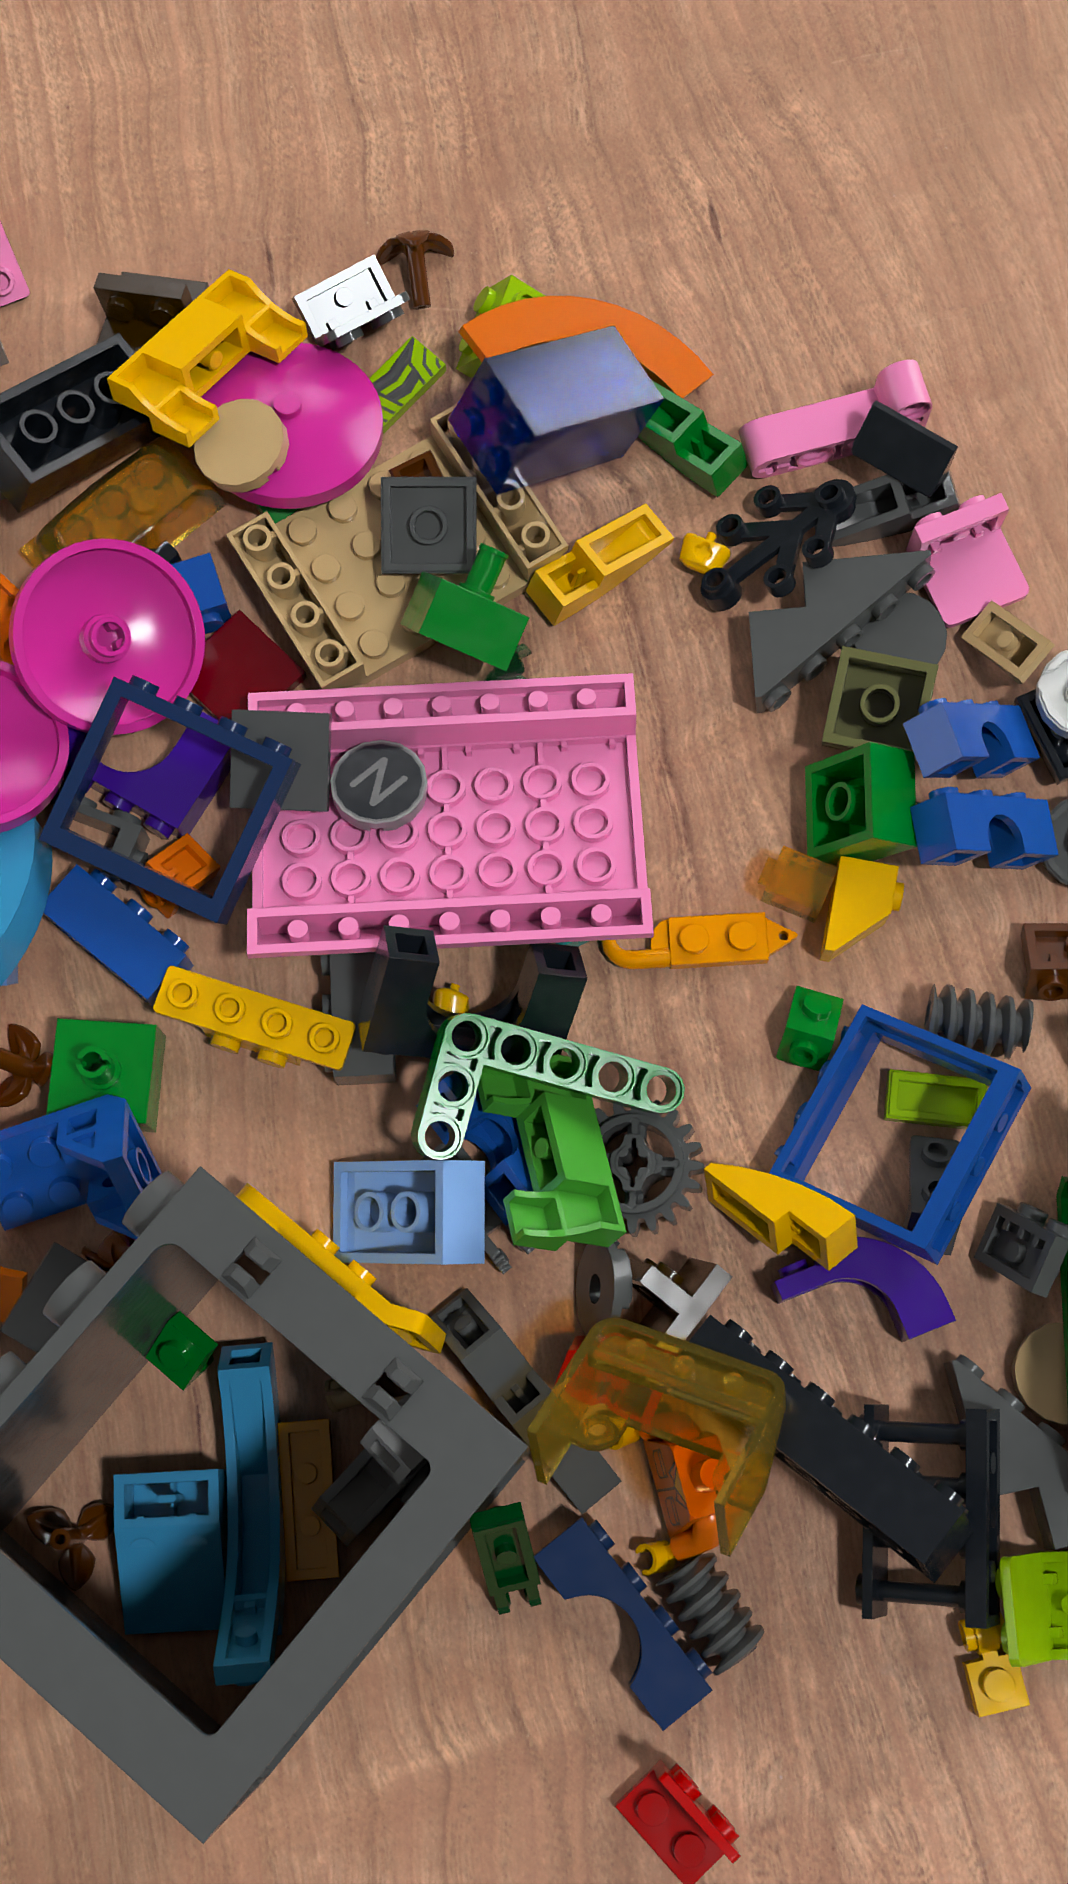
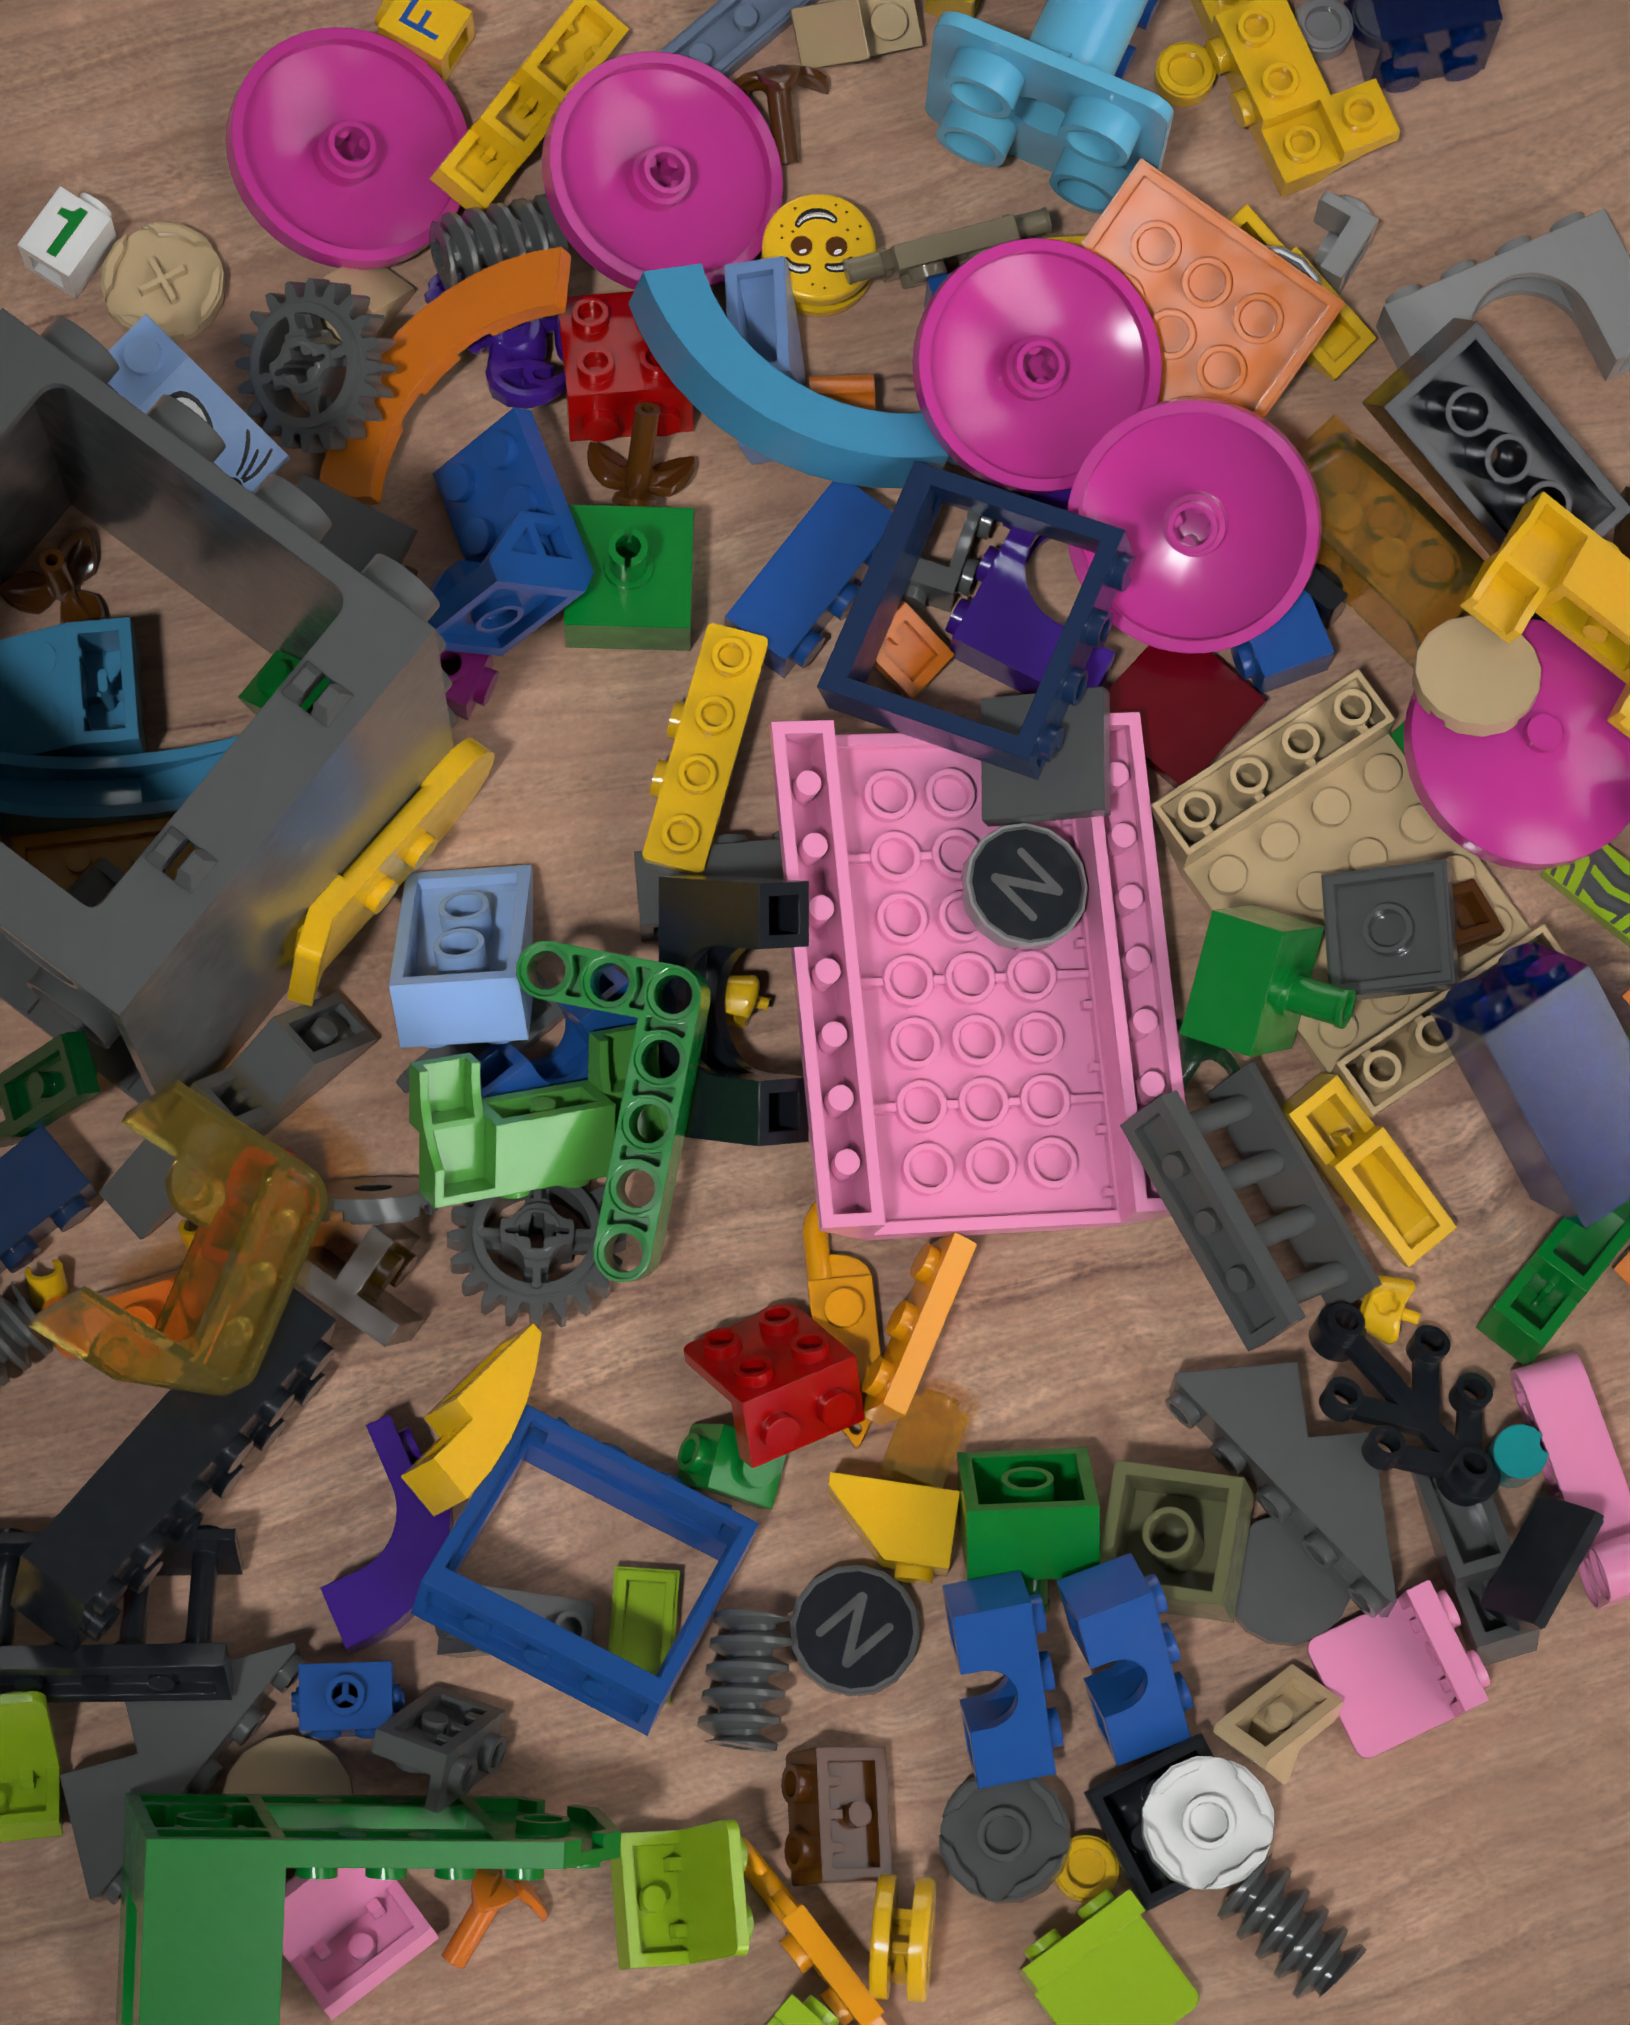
camera: 80 degrees right, 0 degrees up
(643, 657) = (1215, 1222): none -> dark grey fence
(715, 882) = (916, 1327): none -> light orange plate
(749, 984) = (782, 1379): none -> red bracket
(814, 469) = (1517, 1455): none -> teal piece
(934, 943) = (854, 1630): none -> black tile
(977, 1337) = (322, 1718): none -> blue head

